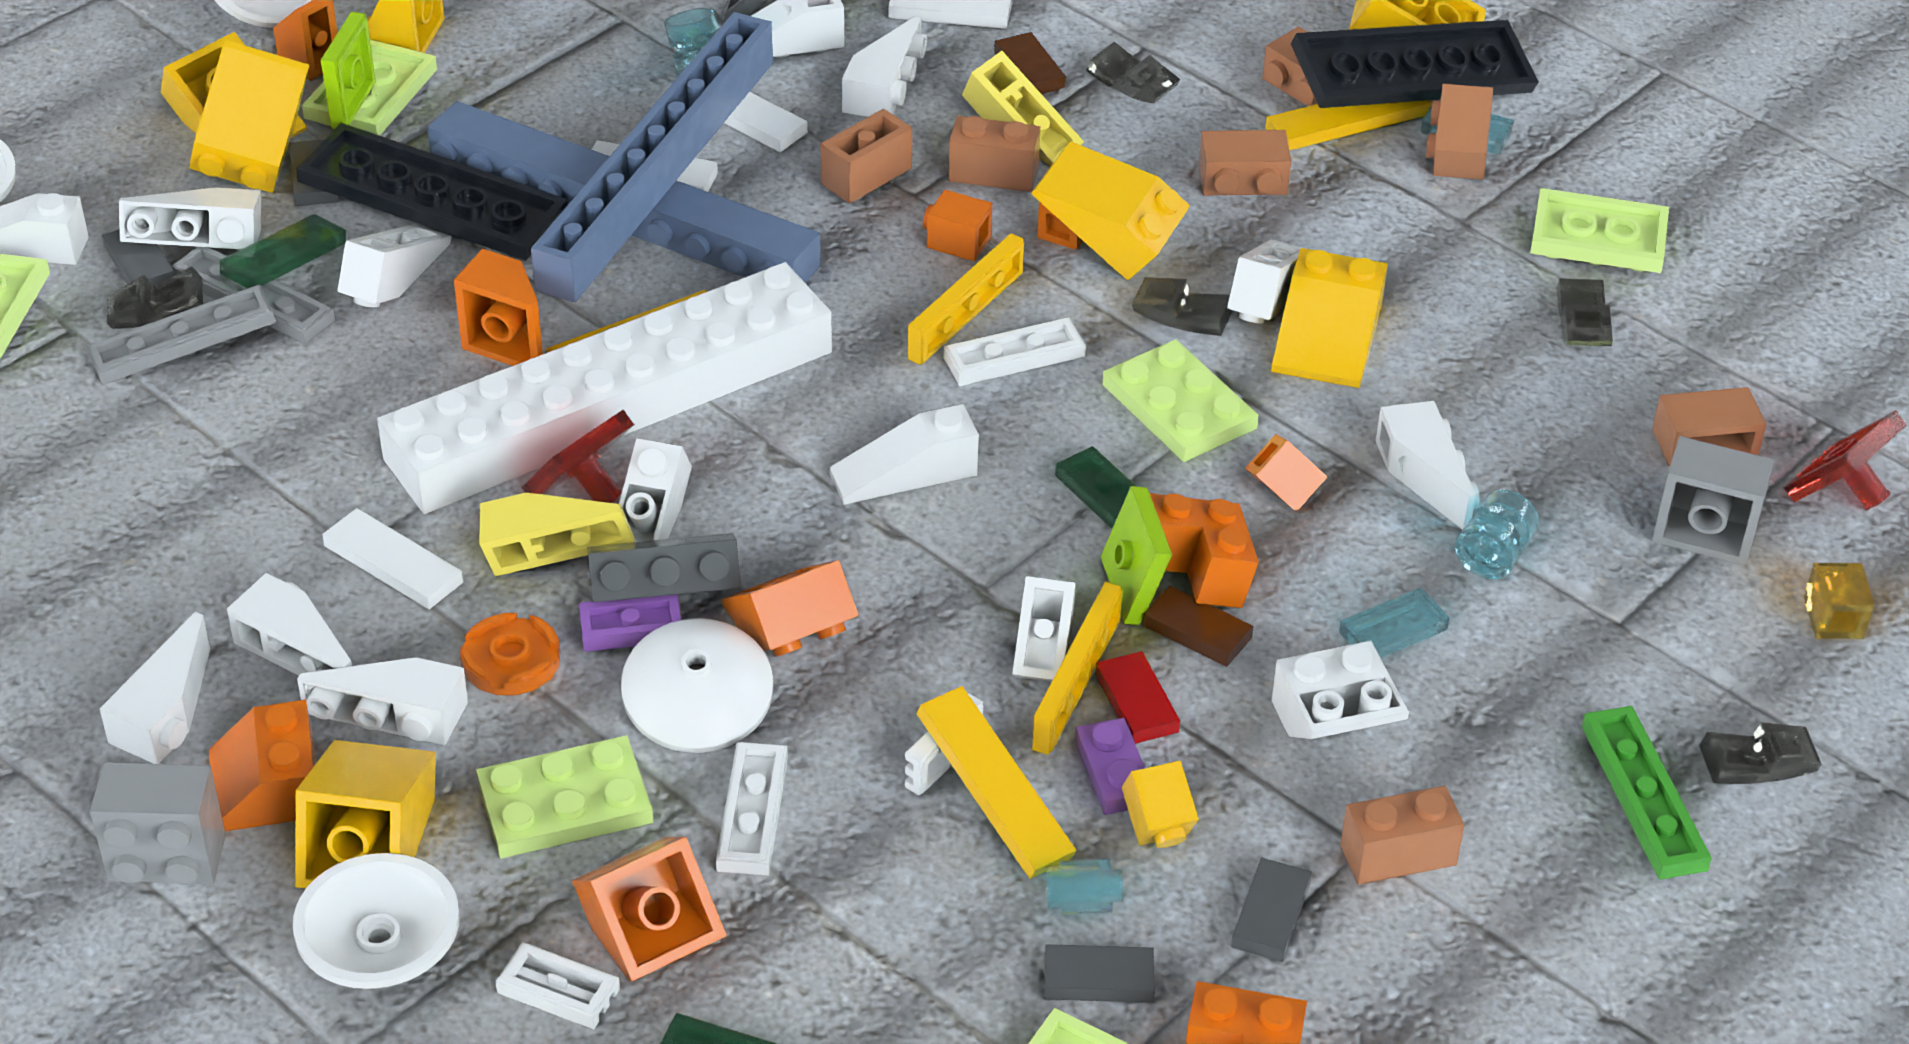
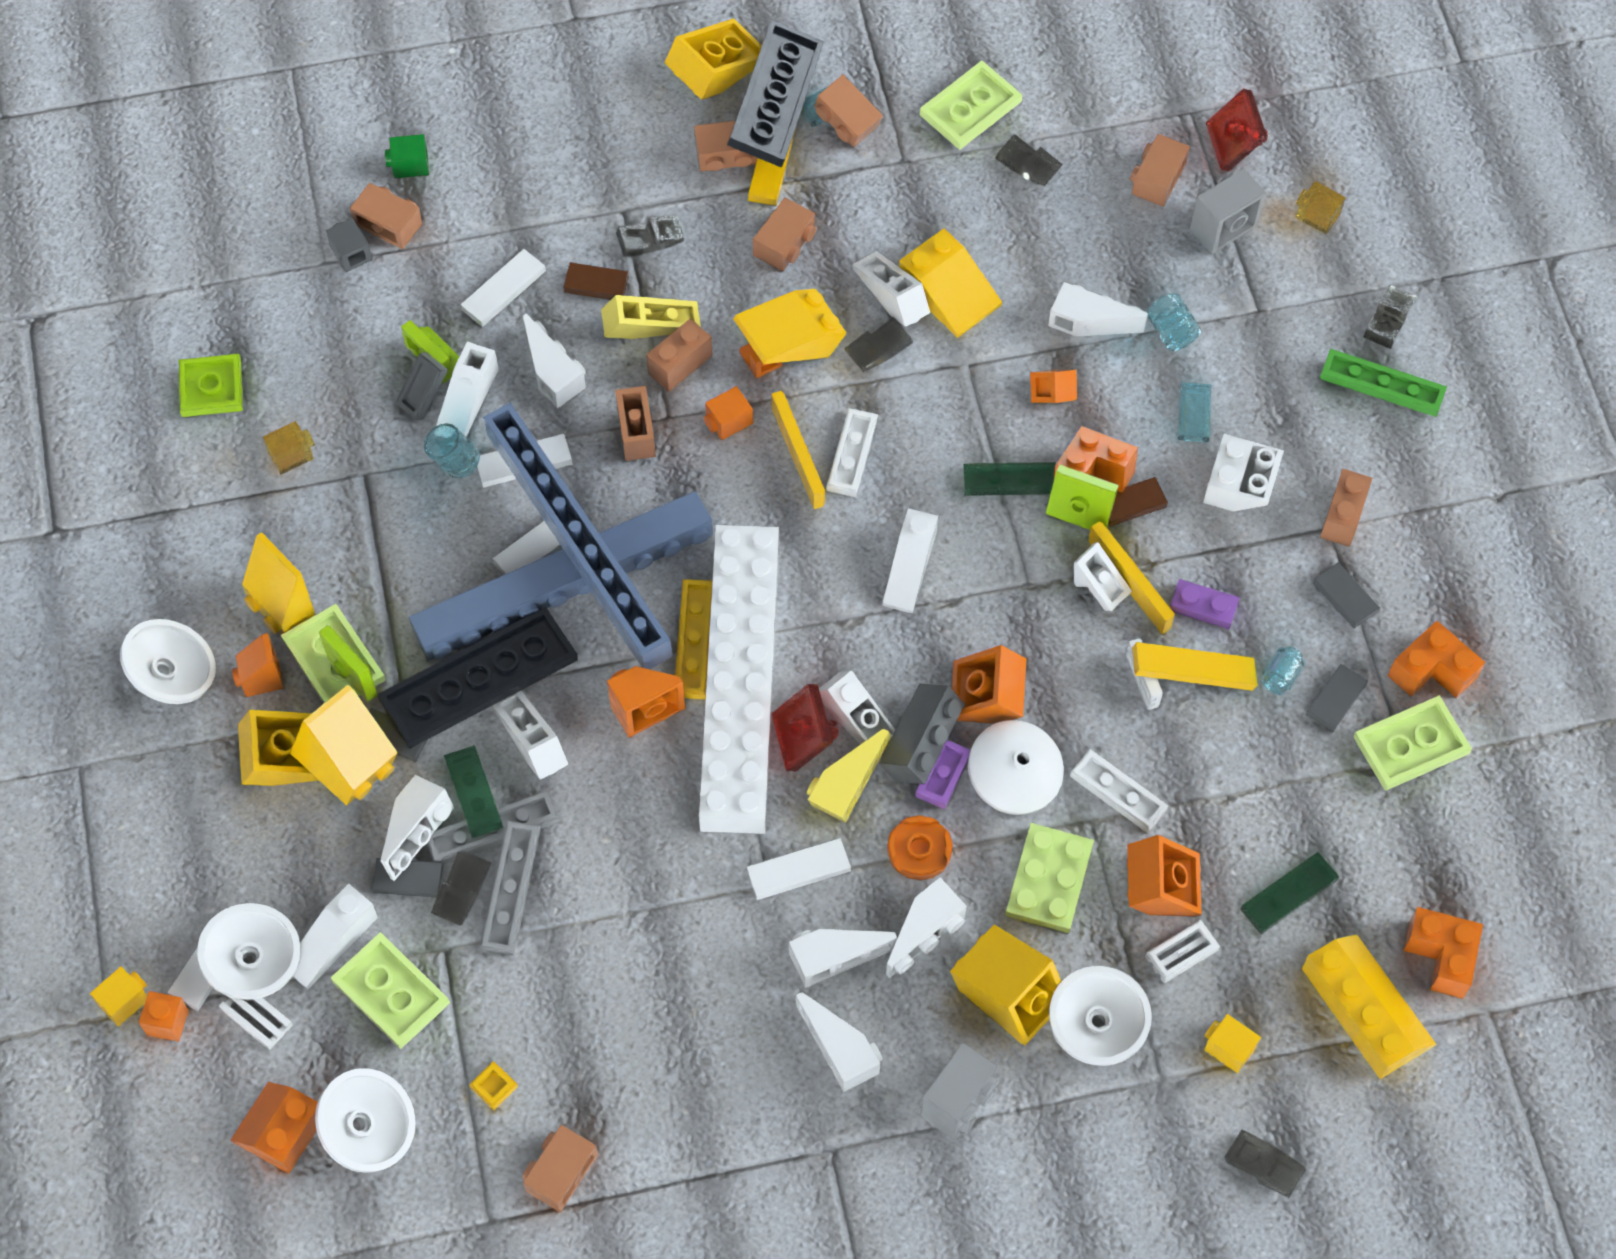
camera: 55 degrees left, 20 degrees up
(263, 765) = (935, 1017): orange slope -> none
(1137, 696) = (1164, 562): red tile -> none
(1160, 804) = (1257, 601): yellow brick -> none
(1180, 400) = (953, 397): yellowish green plate -> none

